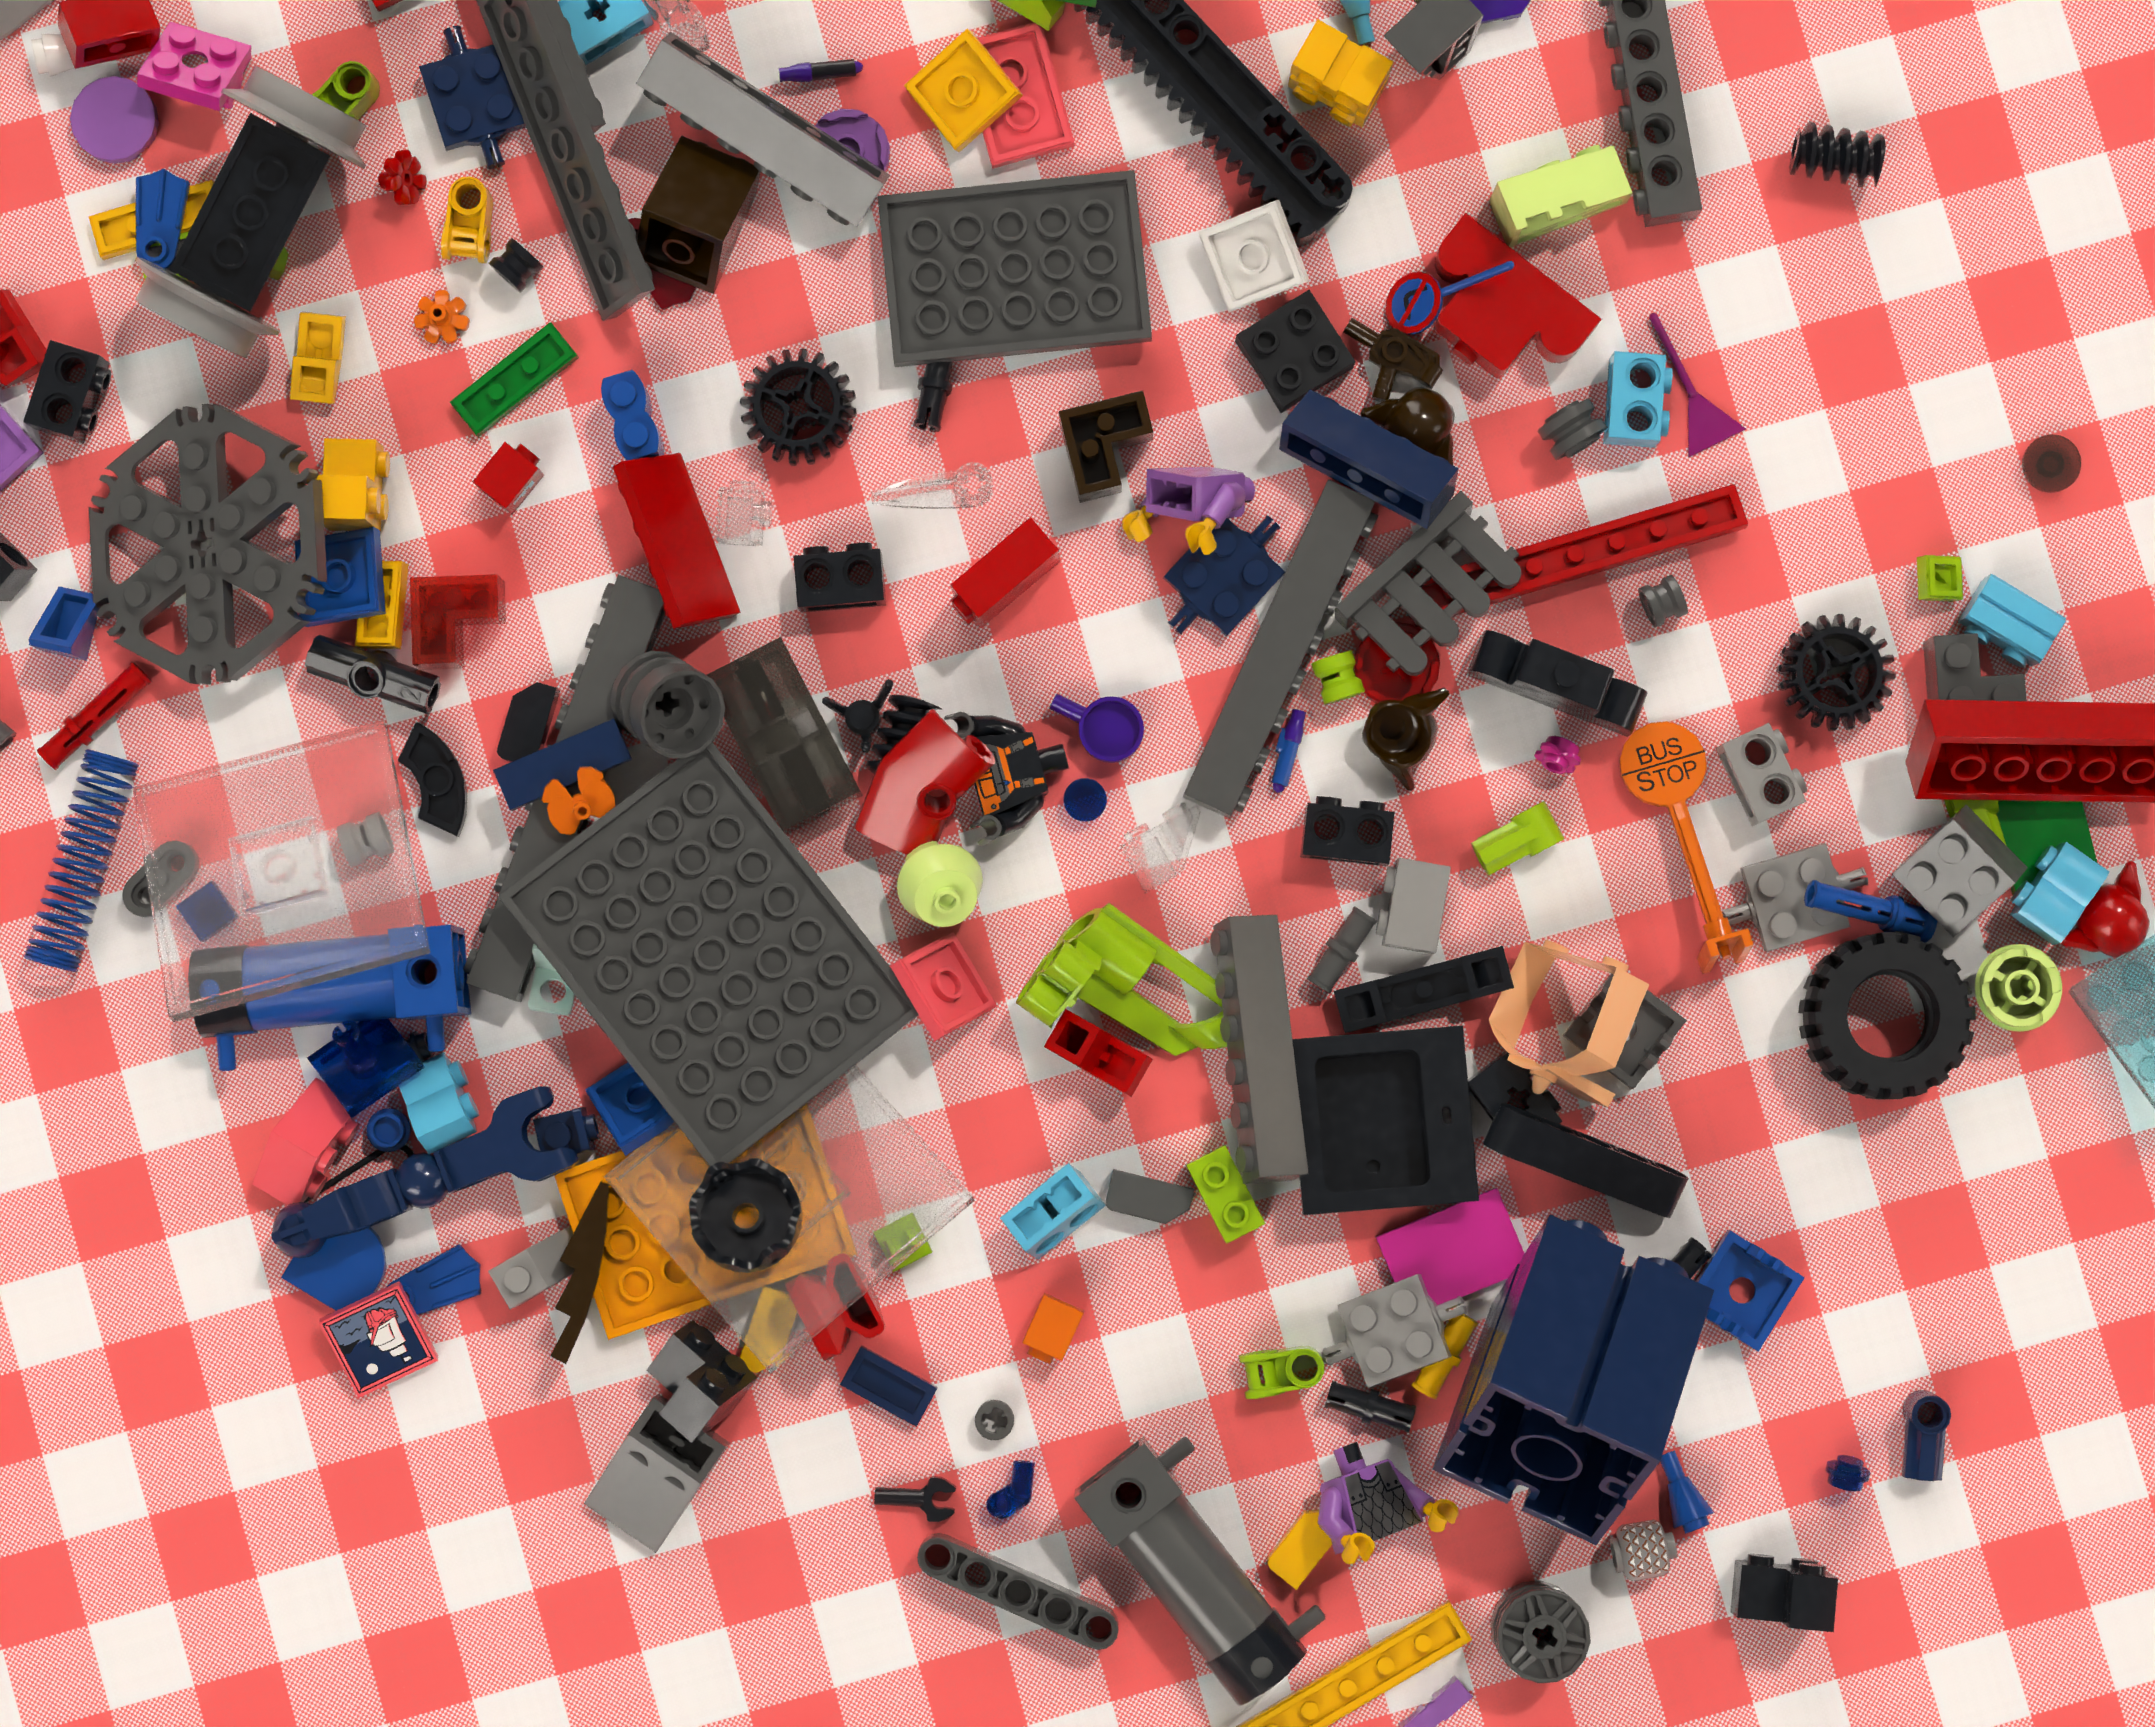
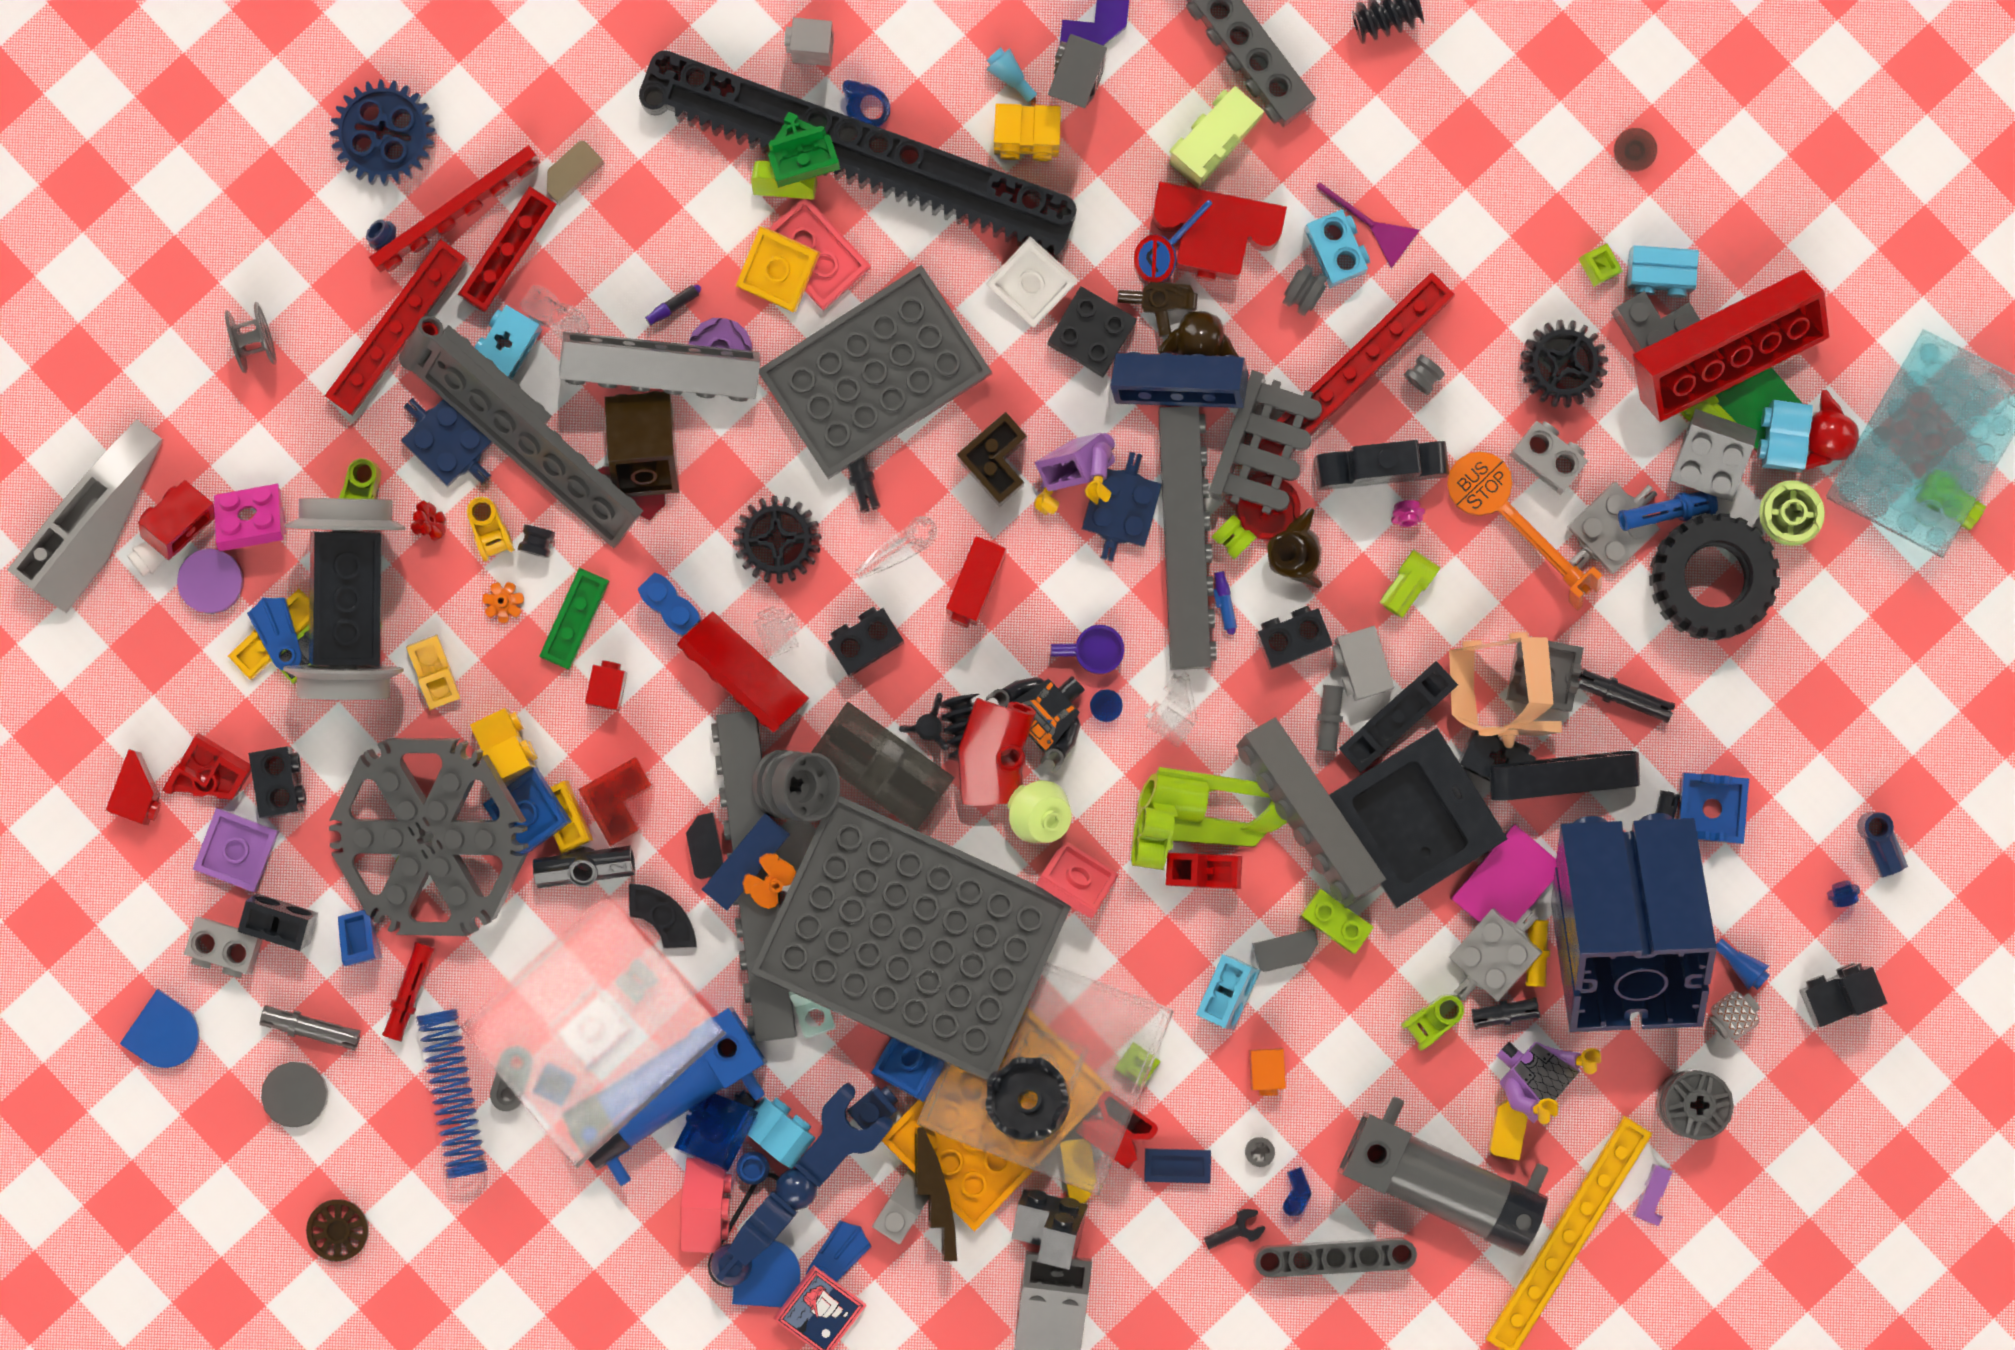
camera: 35 degrees left, 0 degrees up
(1707, 1103) = (1613, 691): none -> black pin

